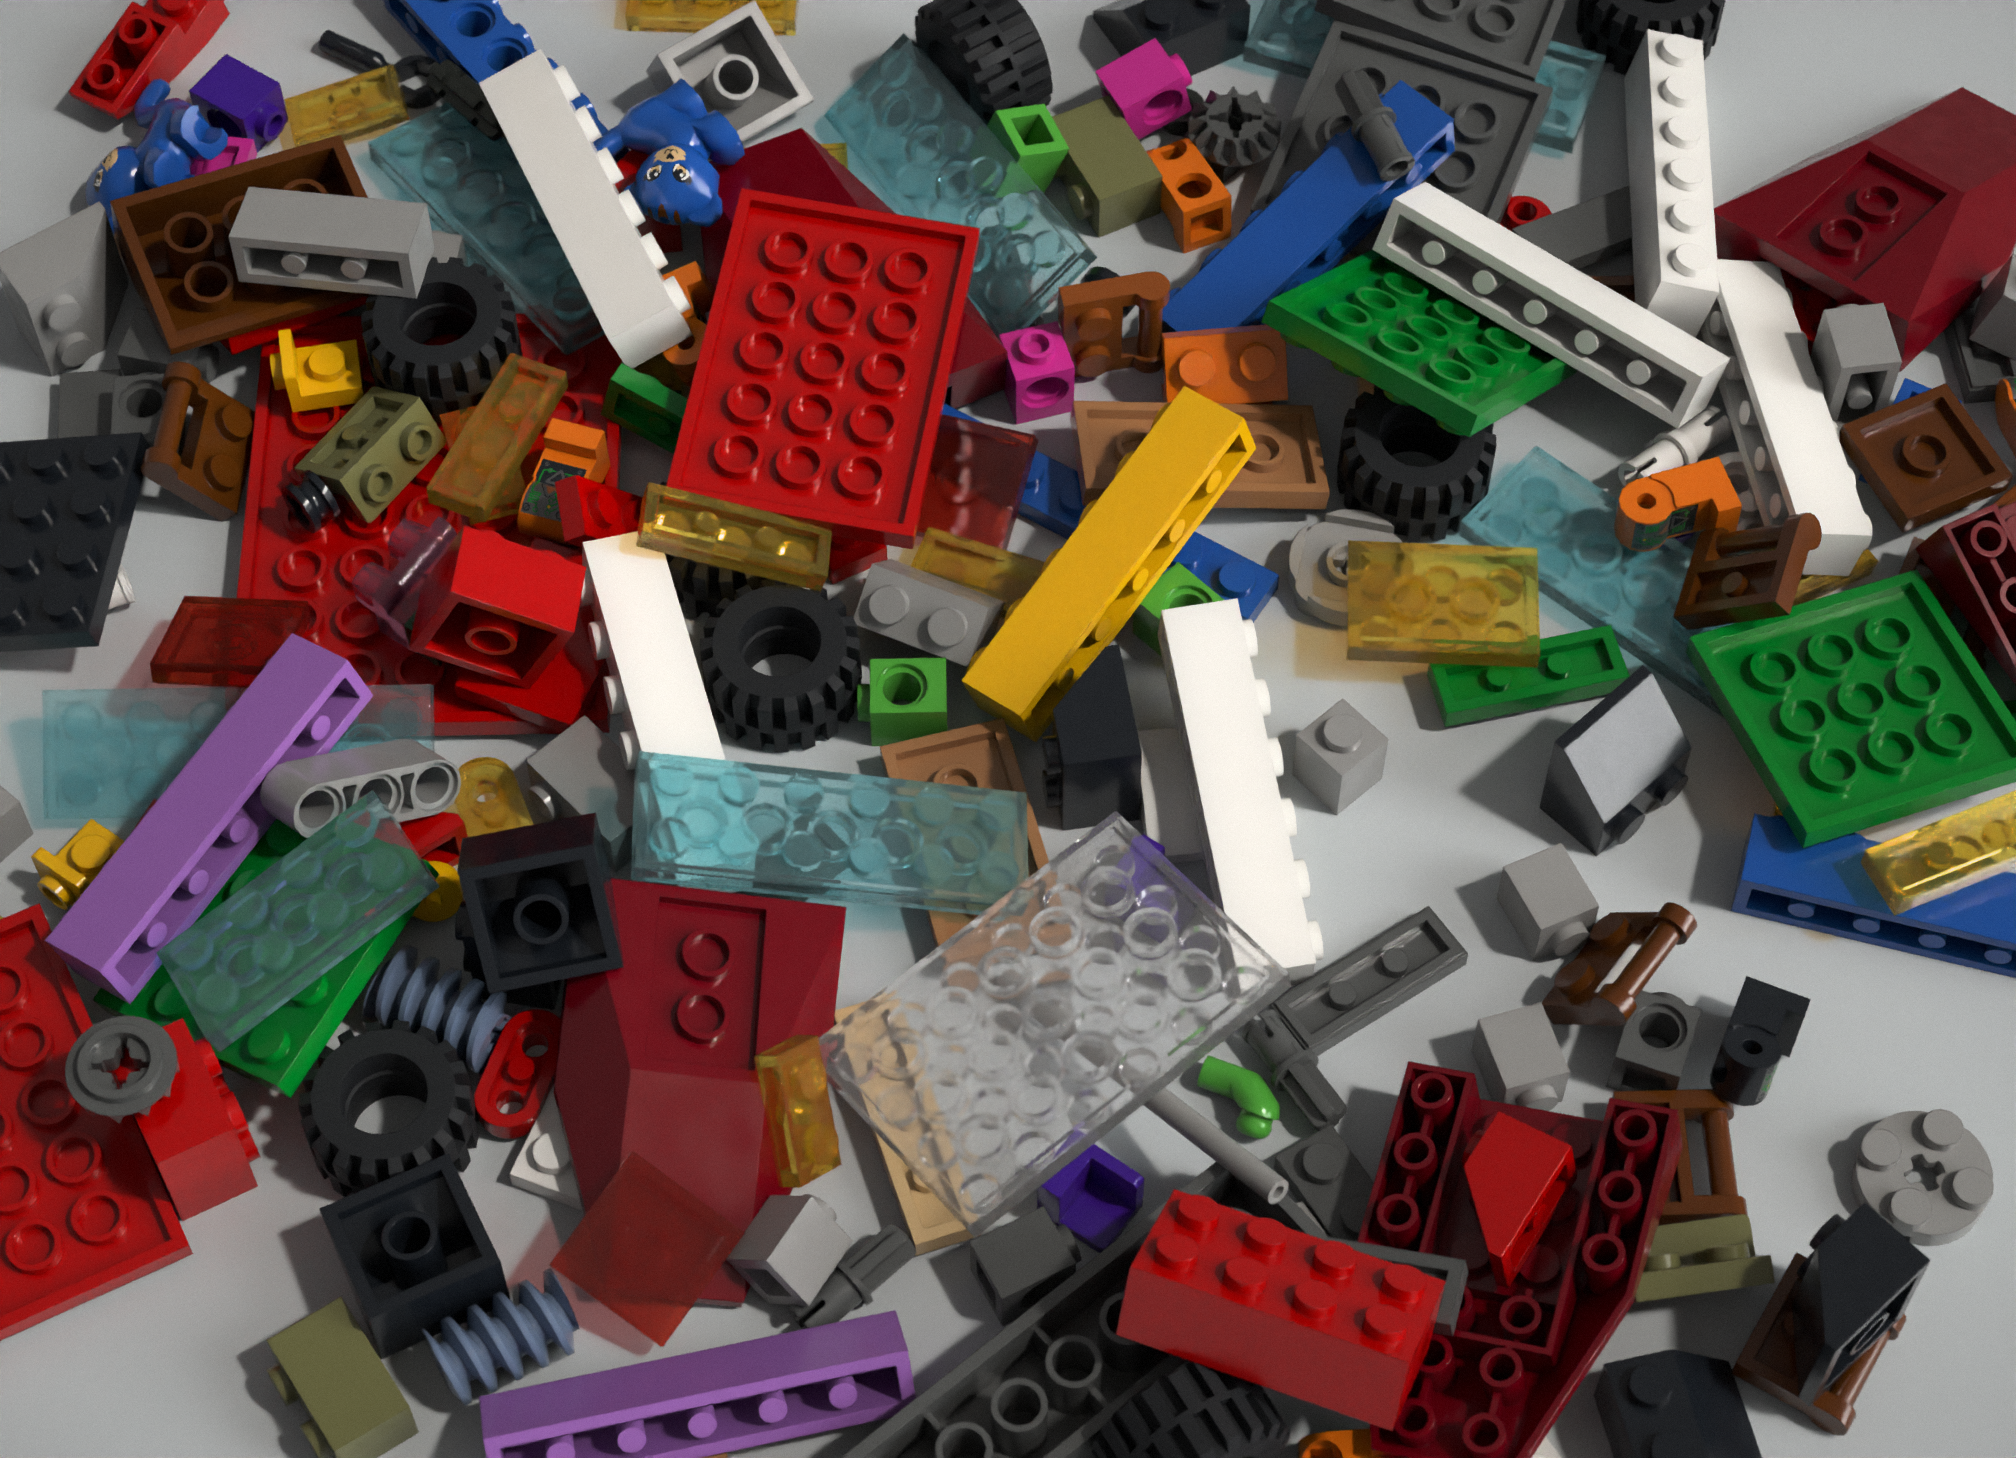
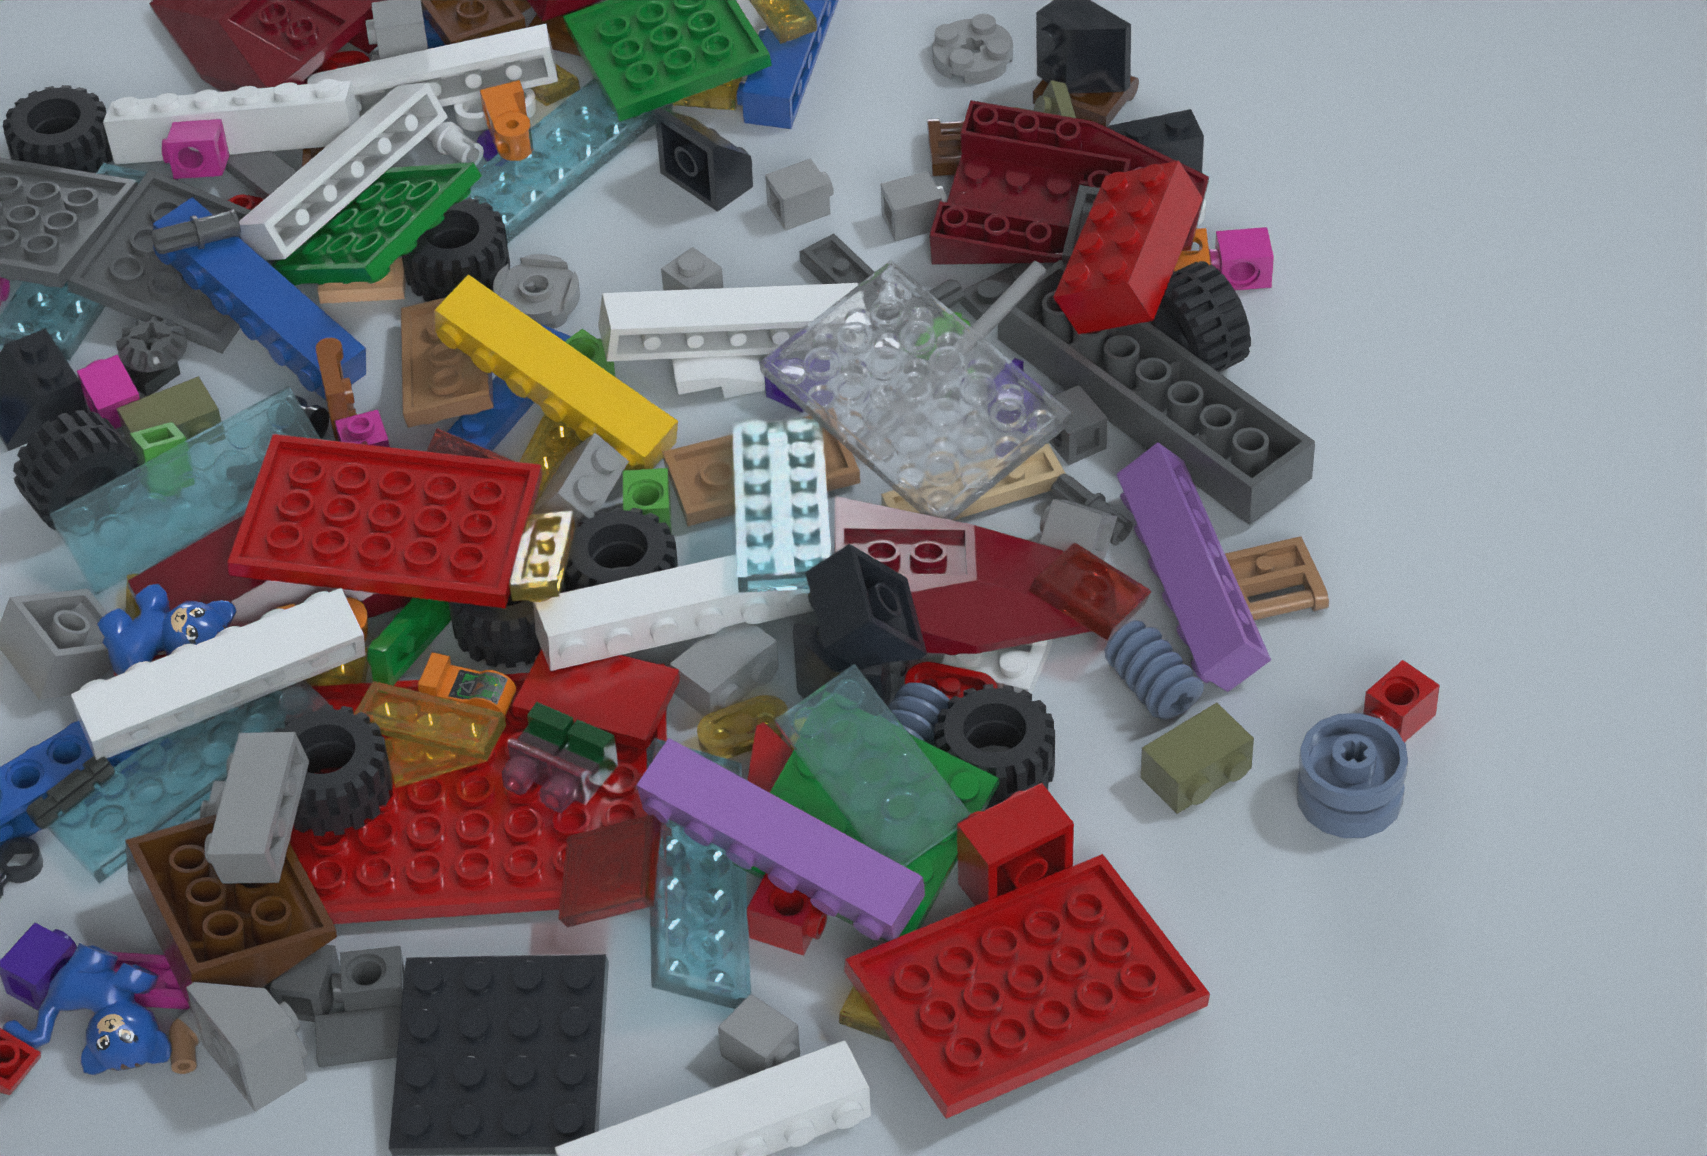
camera: 90 degrees left, 10 degrees down
(76, 864) = (791, 971): yellow bracket -> none
(102, 1050) = (1026, 833): dark grey gear -> none
(215, 445) = (387, 931): reddish brown plate -> none
(310, 501) = (474, 844): black bush -> none
(318, 373) = (344, 861): yellow bracket -> none
(321, 787) = (754, 755): light grey beam -> none
(348, 107) = (51, 890): clear yellow plate -> none
(375, 450) = (422, 815): olive bracket -> none
(414, 1253) = (1105, 712): black slope -> none
(497, 607) = (610, 670): red brick -> none
(595, 510) = (505, 654): red plate -> none
(798, 1110) = (971, 511): clear yellow plate -> none
(1094, 748) = (692, 386): black slope -> none
(1192, 196) = (211, 364): orange leg -> none
(1226, 364) = (376, 342): orange bracket -> none
(1442, 604) = (581, 229): clear yellow plate -> none
(1515, 1188) = (1022, 182): red slope -> none
(1568, 670) = (625, 206): green plate -> none
(1610, 144) = (203, 135): none -> dark pink brick
(1616, 966) = (849, 170): reddish brown plate -> none
(1651, 1068) = (897, 148): dark grey brick -> none
(1746, 572) = (582, 81): reddish brown plate -> none
(1757, 1035) = (896, 103): black leg -> none

